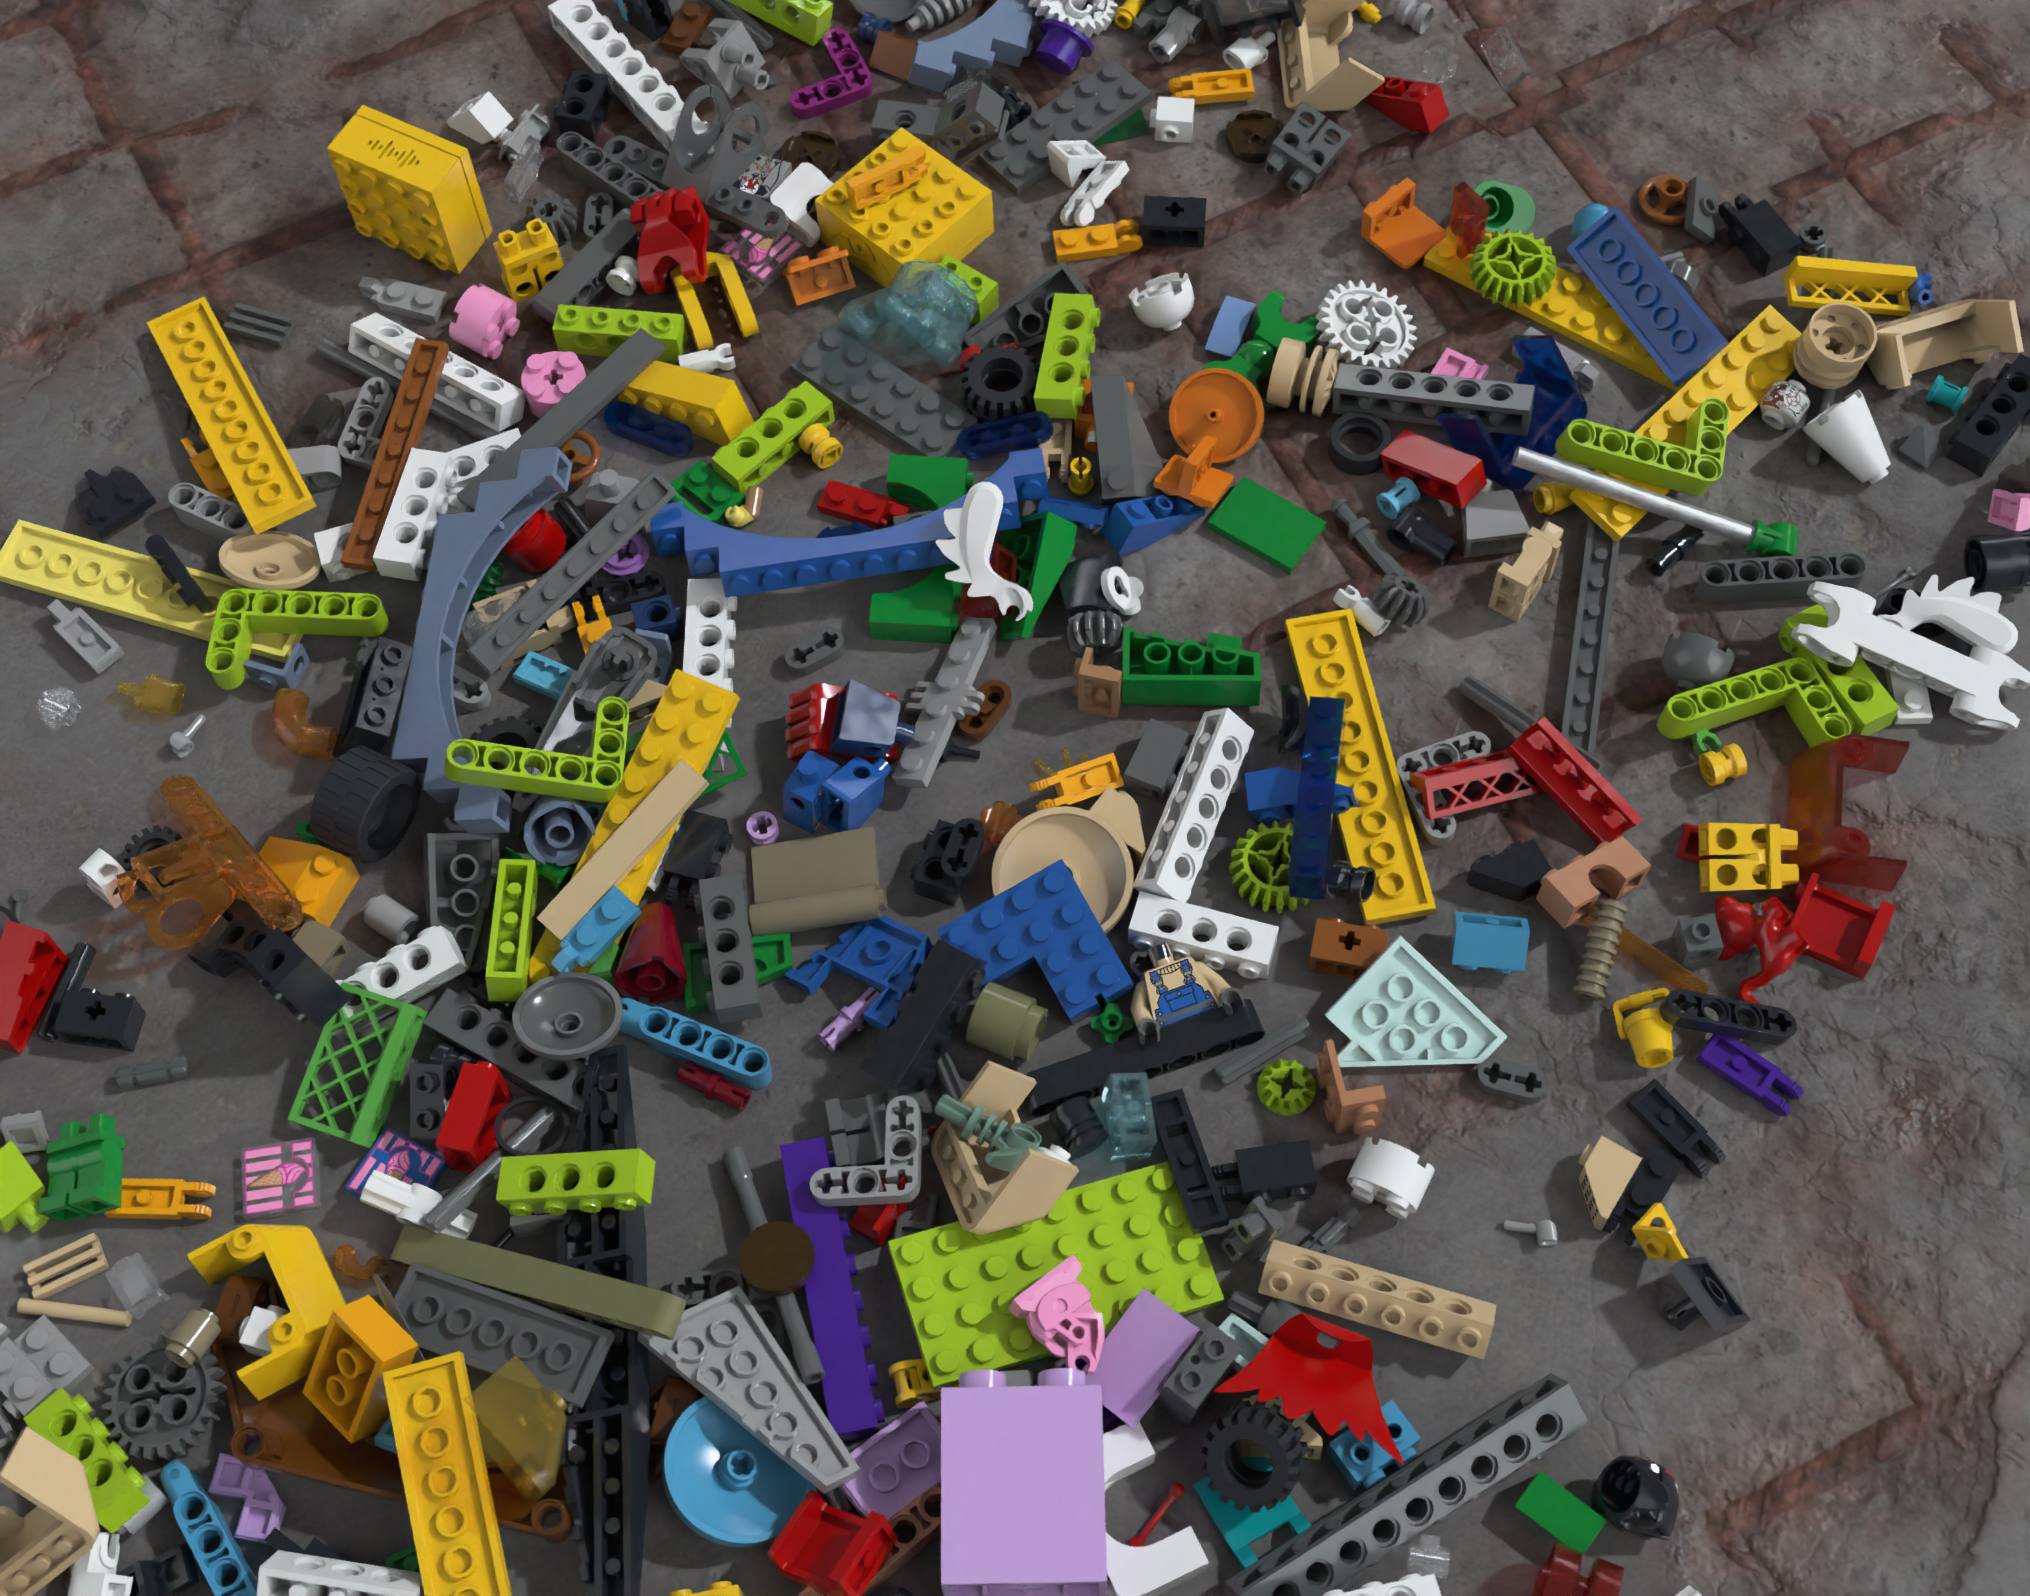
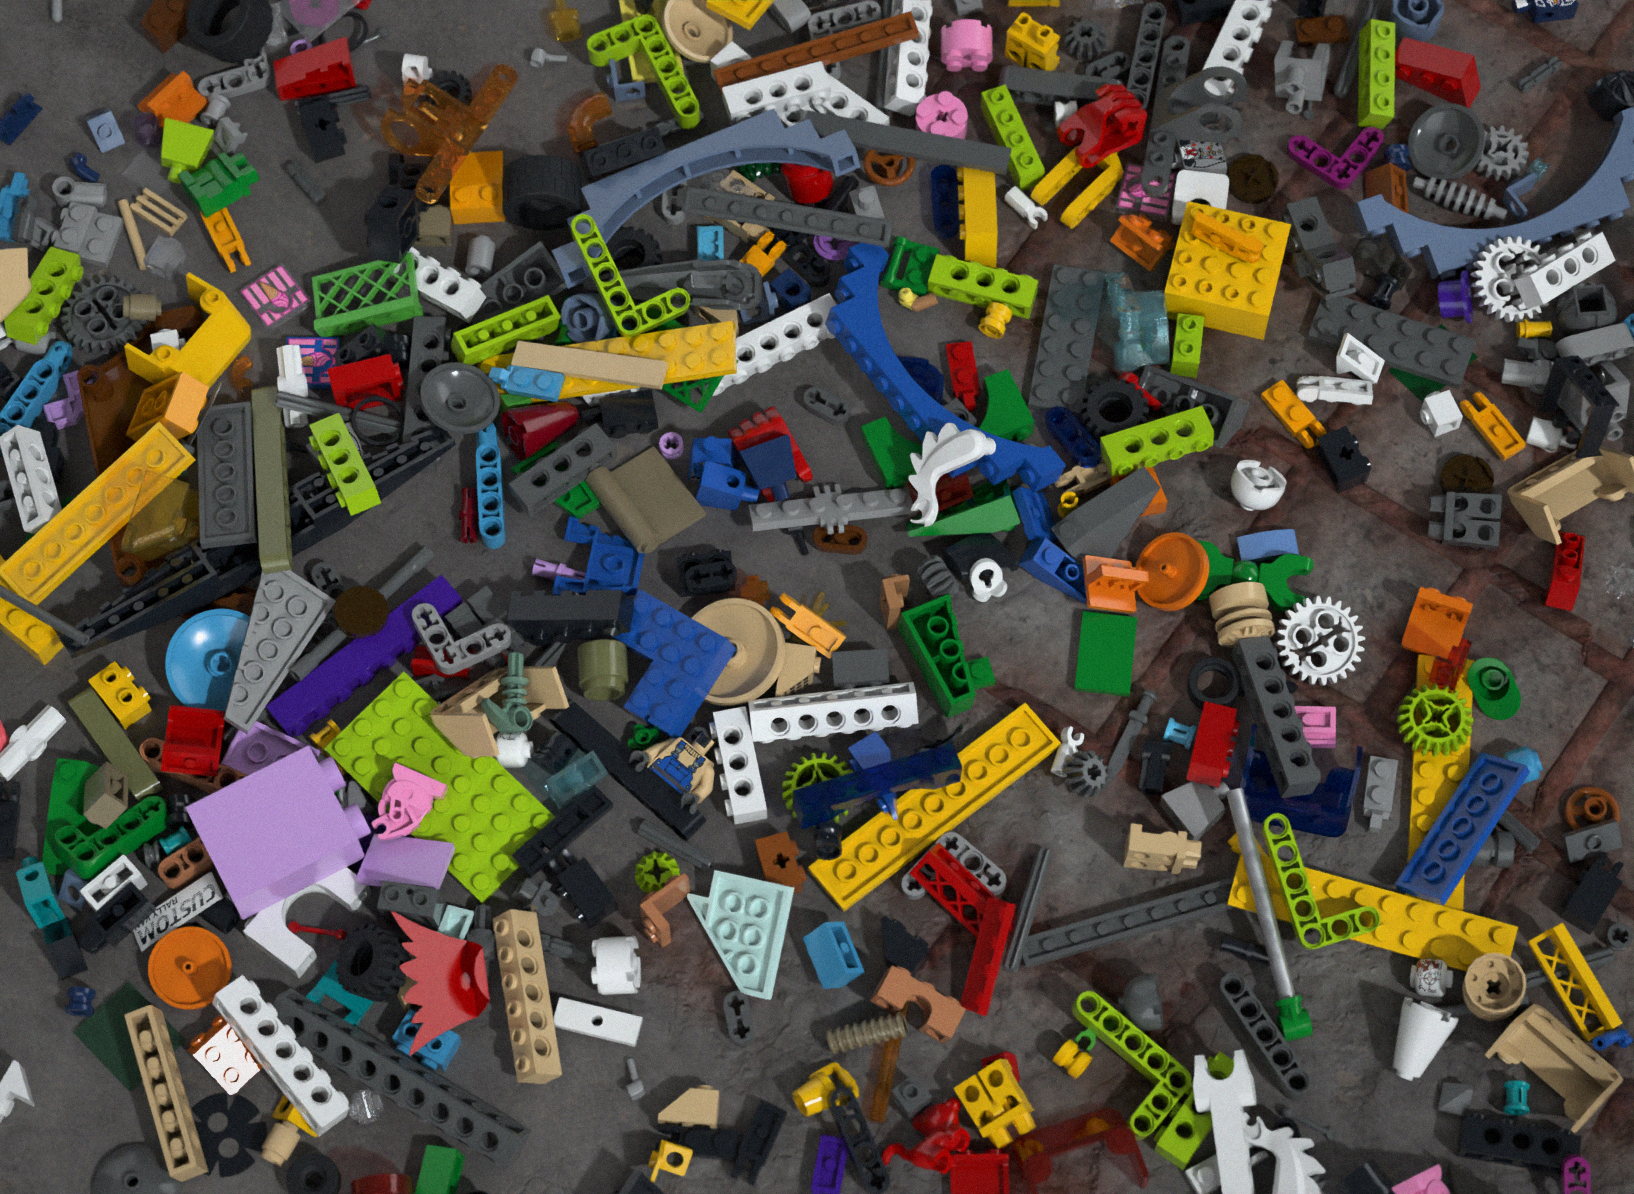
camera: 60 degrees right, 5 degrees up
(1457, 1221) = (580, 1017): none -> white tile

